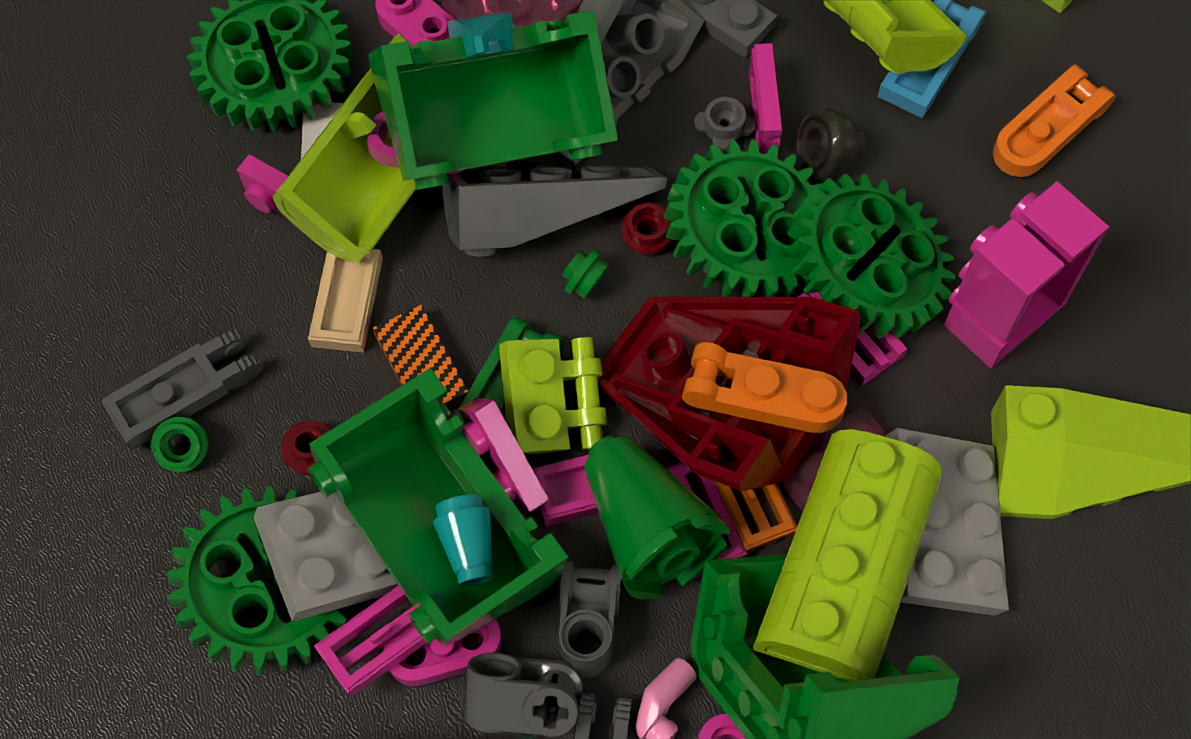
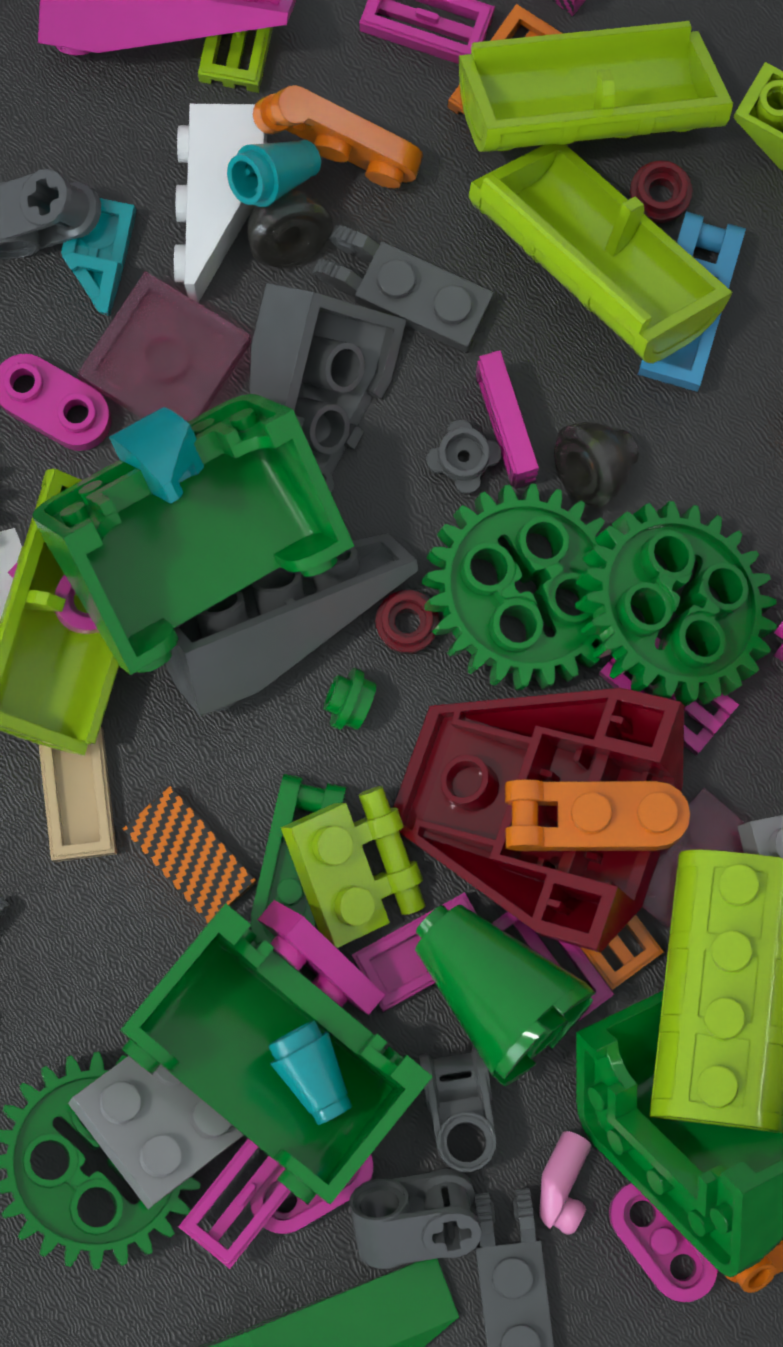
camera: 15 degrees left, 15 degrees up
(294, 437) = (114, 996): dark red plate -> none

